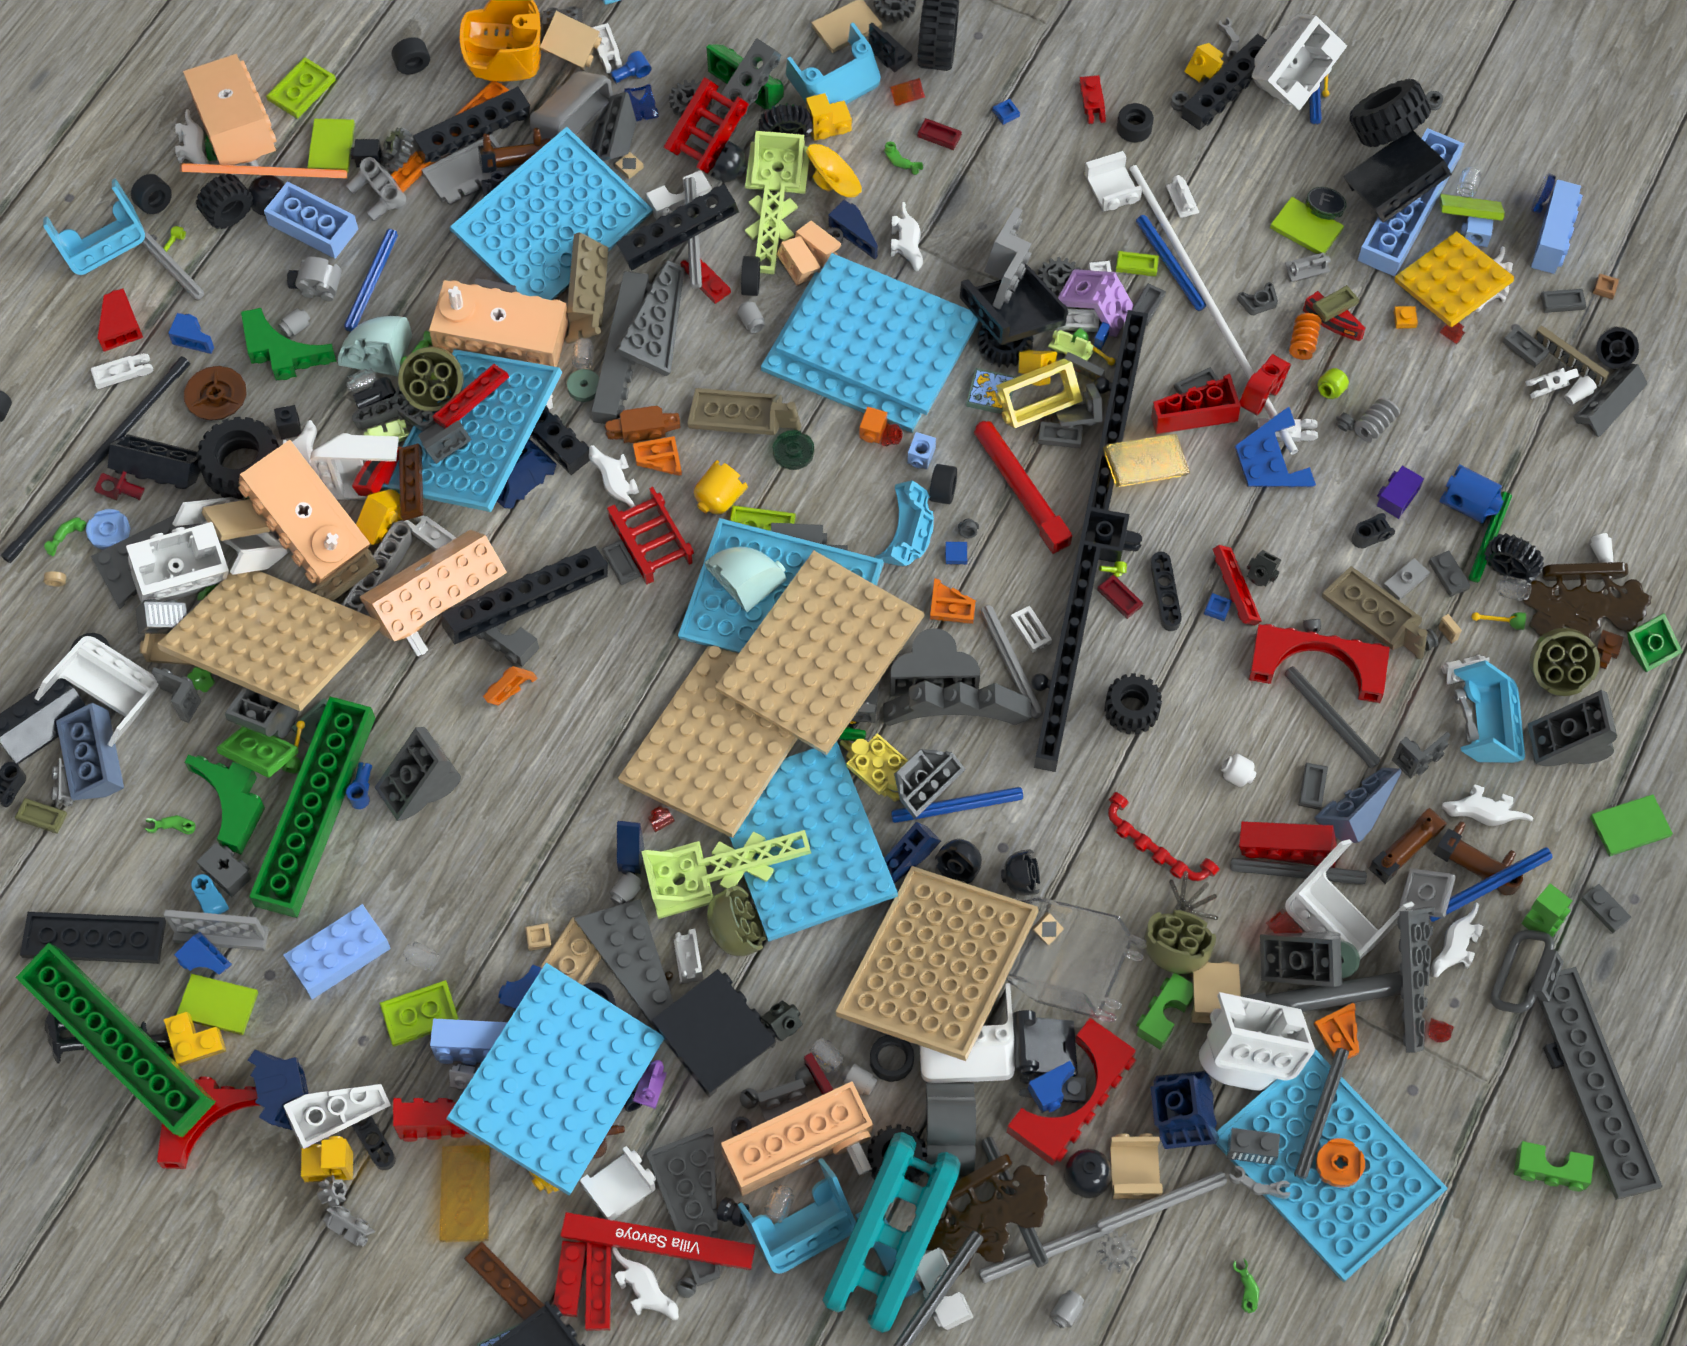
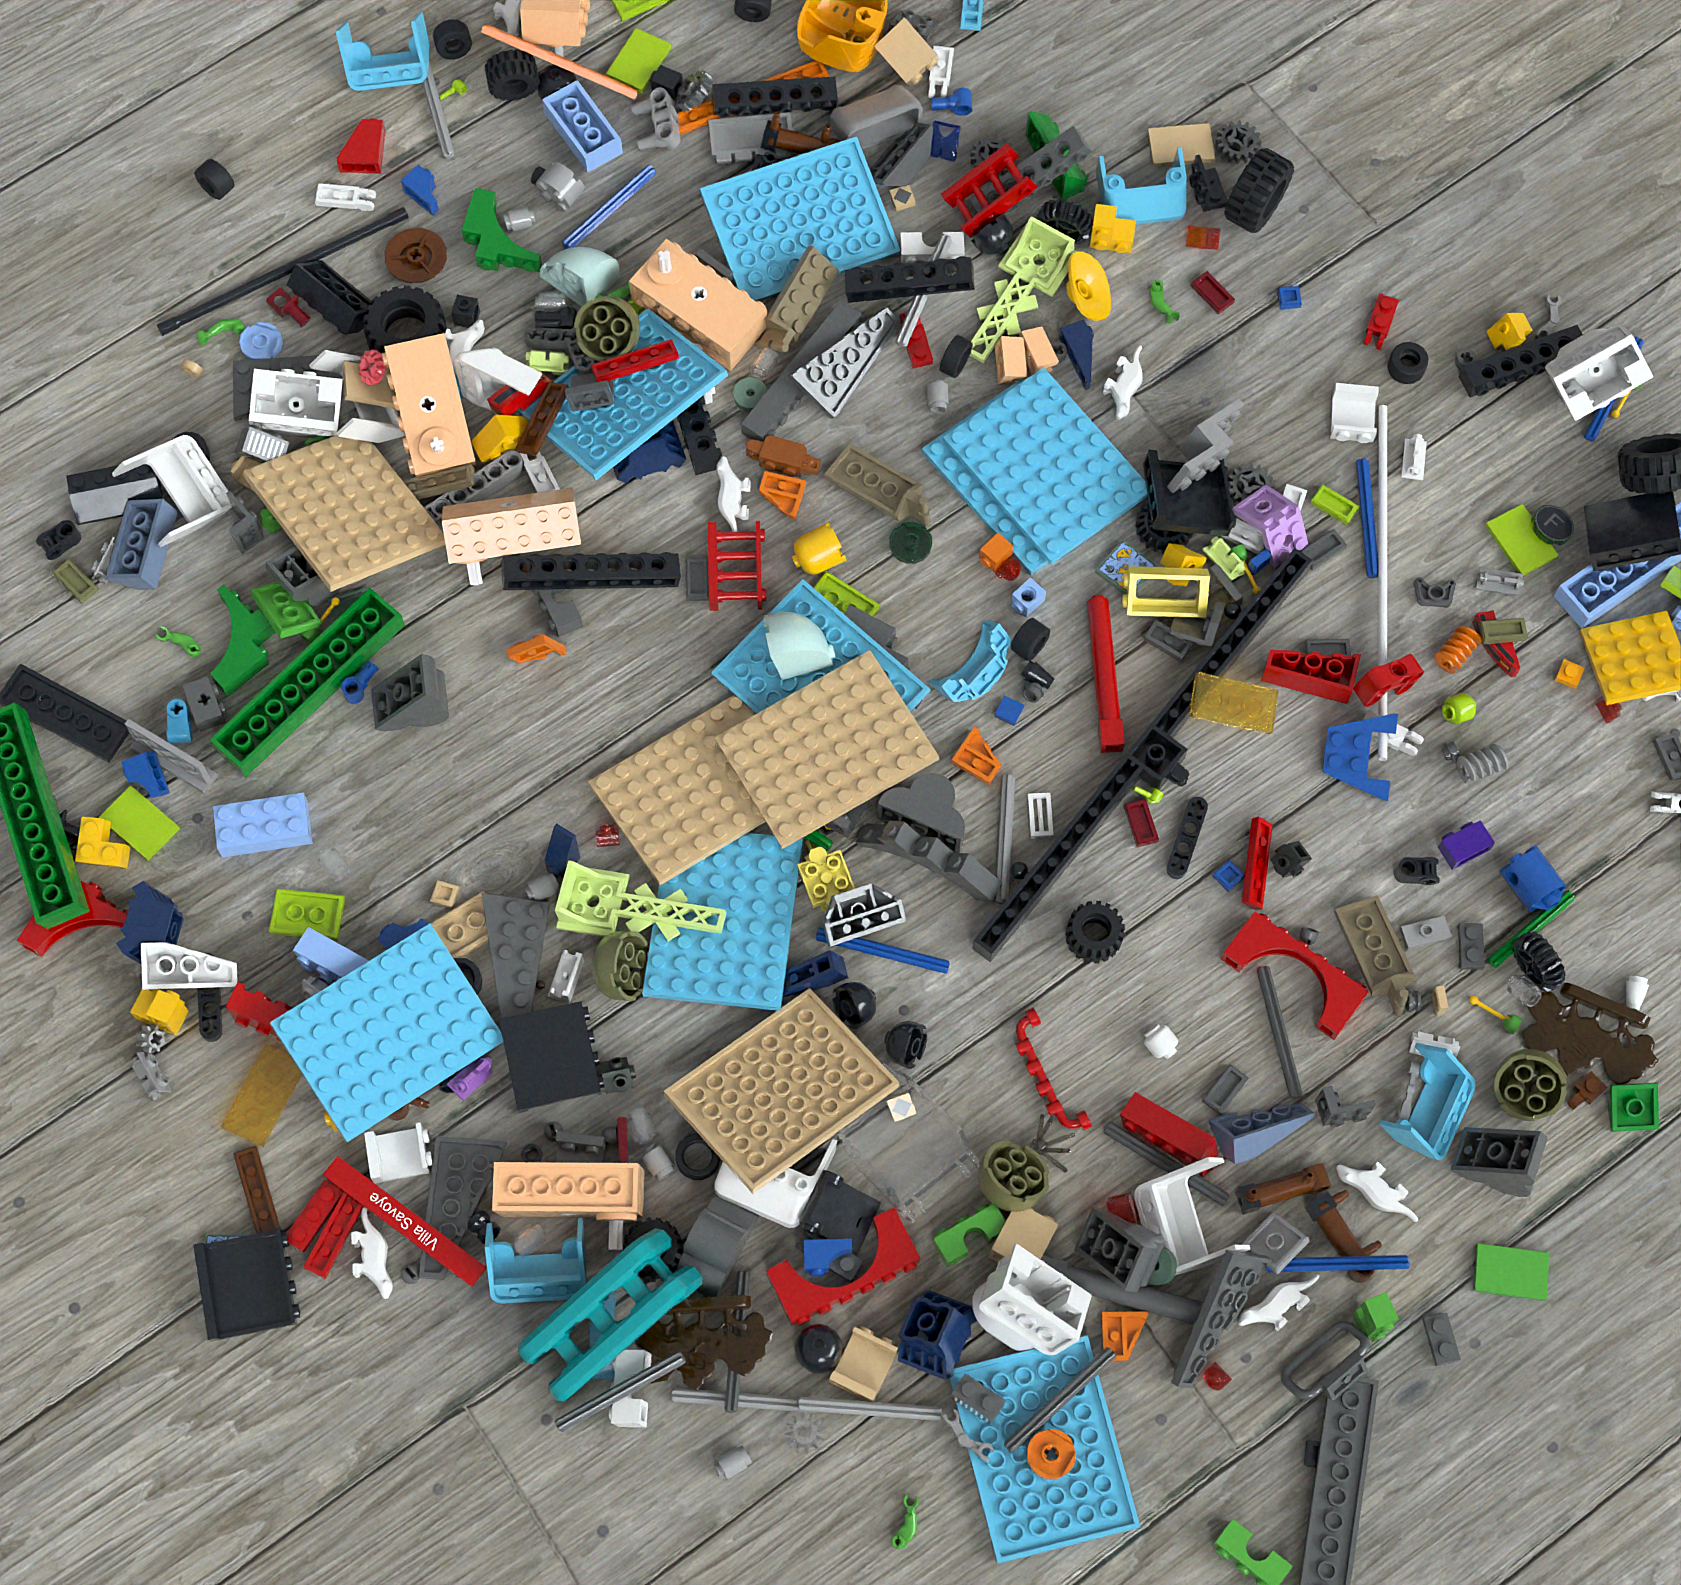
camera: 25 degrees right, 5 degrees up
(240, 501) = (377, 370): none -> coral gear
(960, 511) = (1035, 673): none -> black cone

